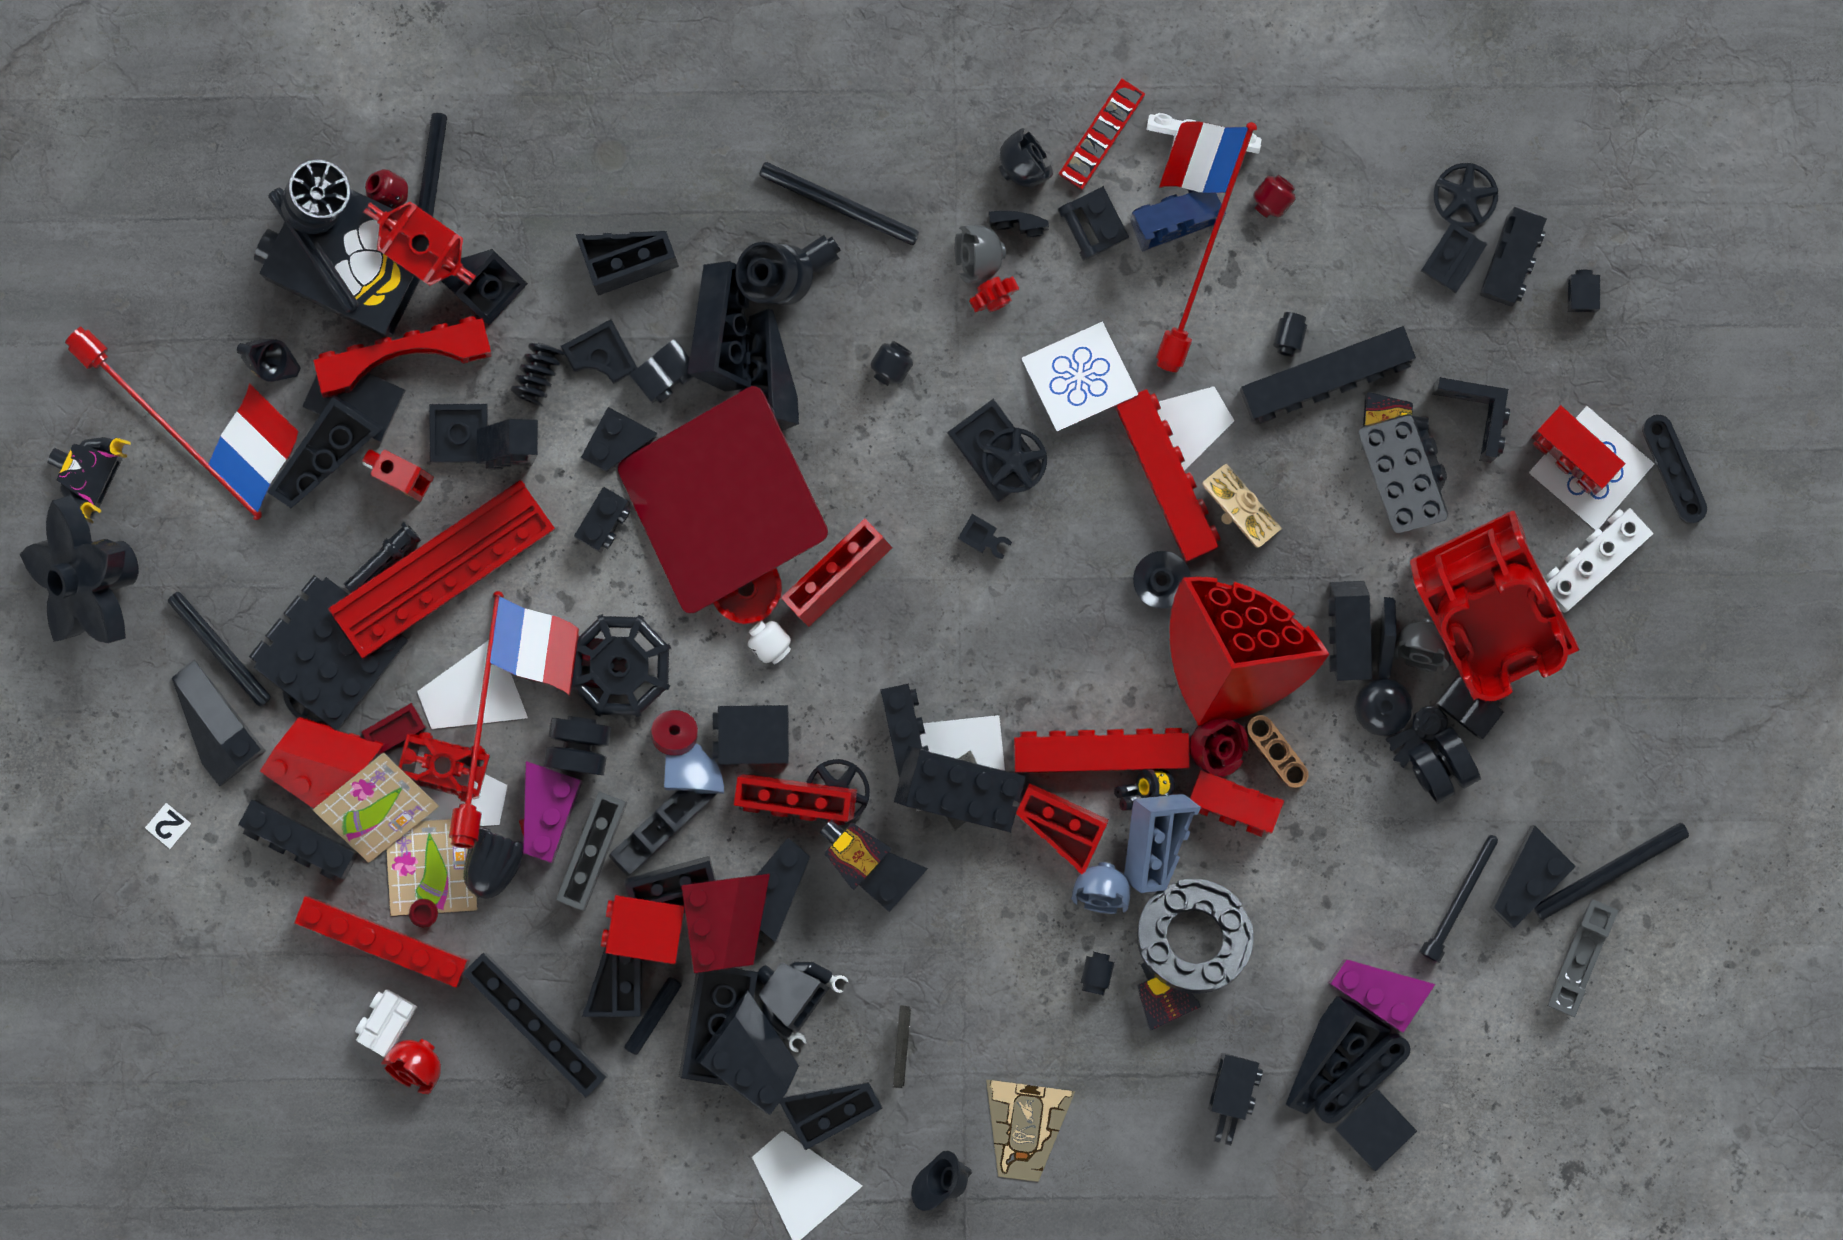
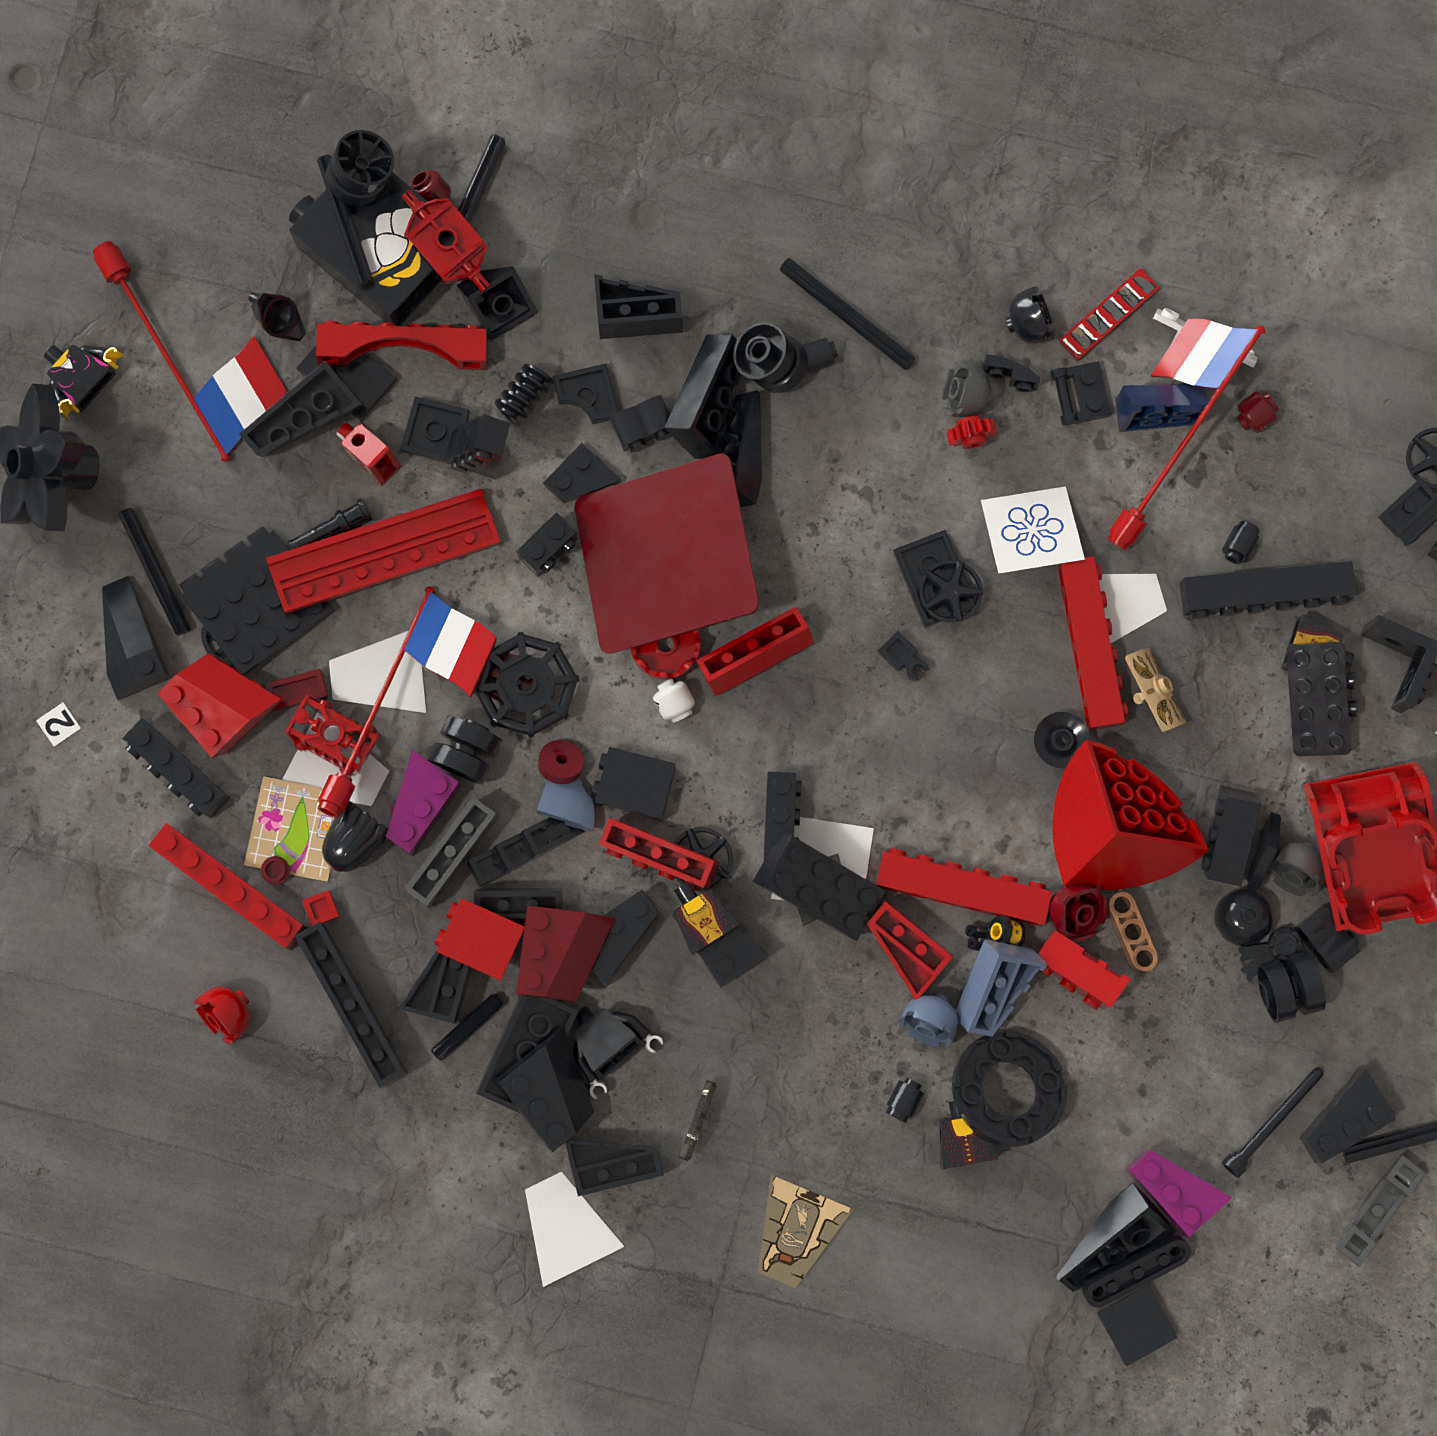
camera: 10 degrees right, 5 degrees down
(375, 807) = (257, 756): sticker -> none
(386, 1022) = (209, 965): white brick -> none
(478, 938) = (321, 908): none -> red plate
(891, 363) = (858, 471): black head -> none
(939, 1181) = (699, 1262): black piece -> none
(1233, 1092) = (1008, 1252): black brick -> none

